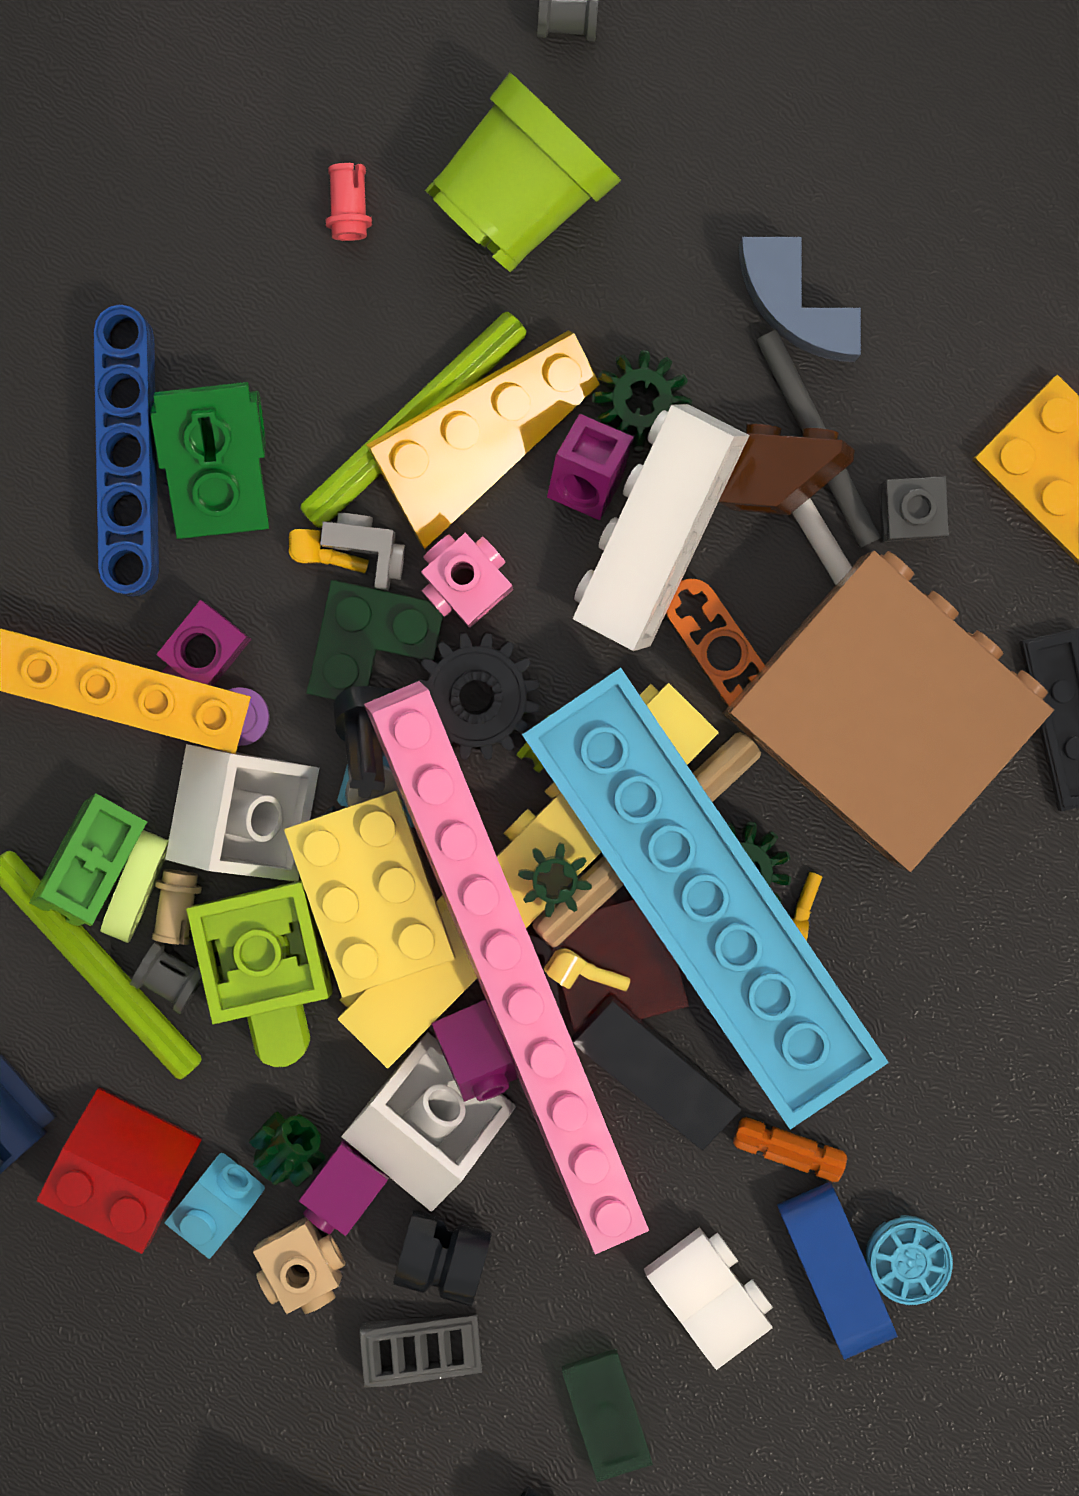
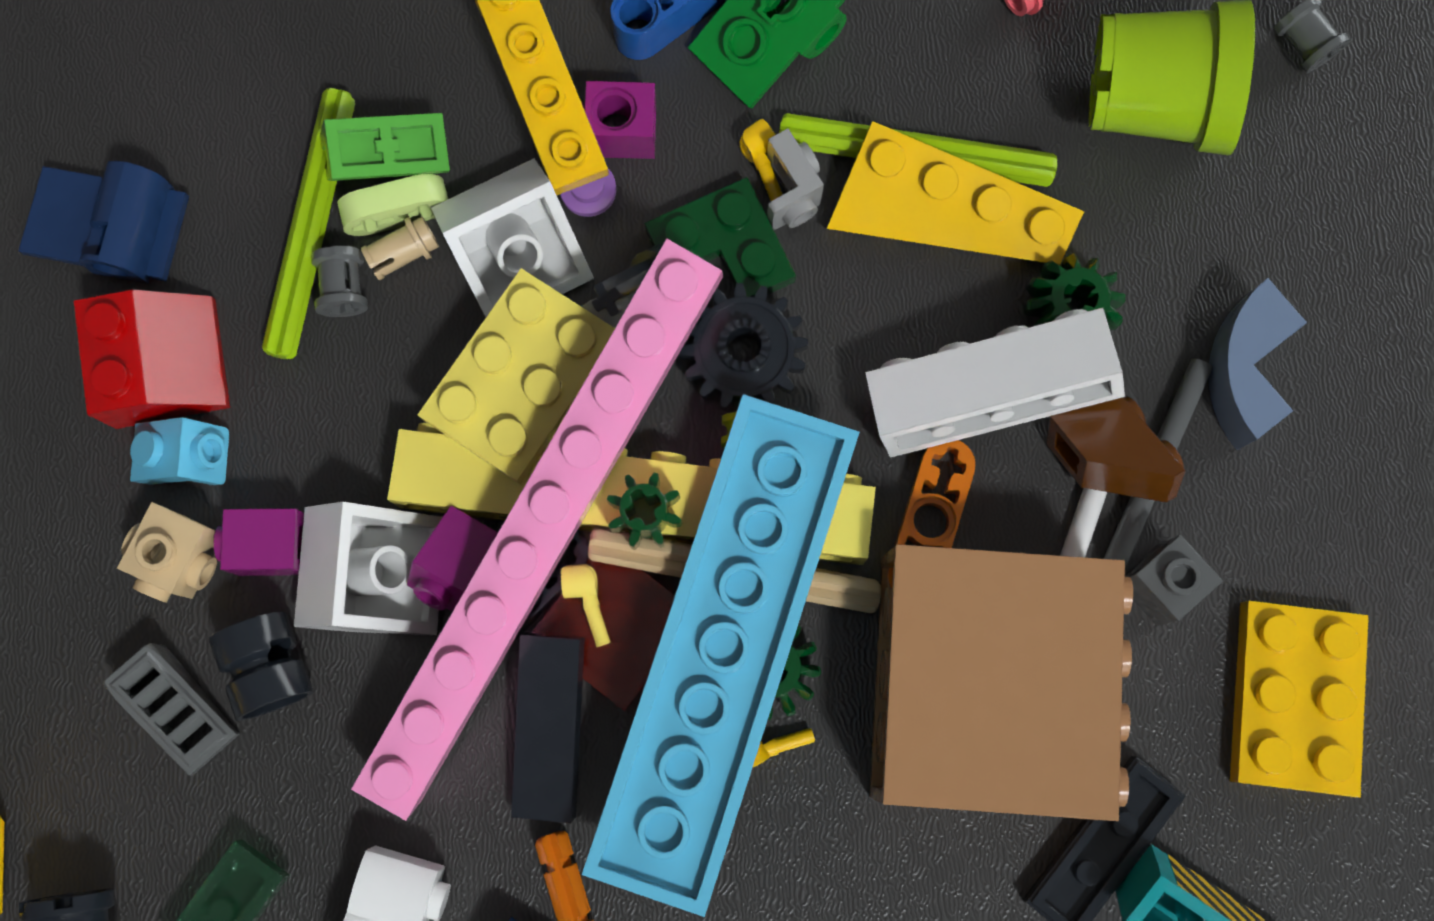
camera: 55 degrees right, 10 degrees down
(267, 968) = (399, 336): lime brick -> none
(287, 1149) = (263, 472): dark green gear -> none
(468, 600) = (829, 271): bright pink brick -> none
(589, 466) = (993, 297): magenta brick -> none

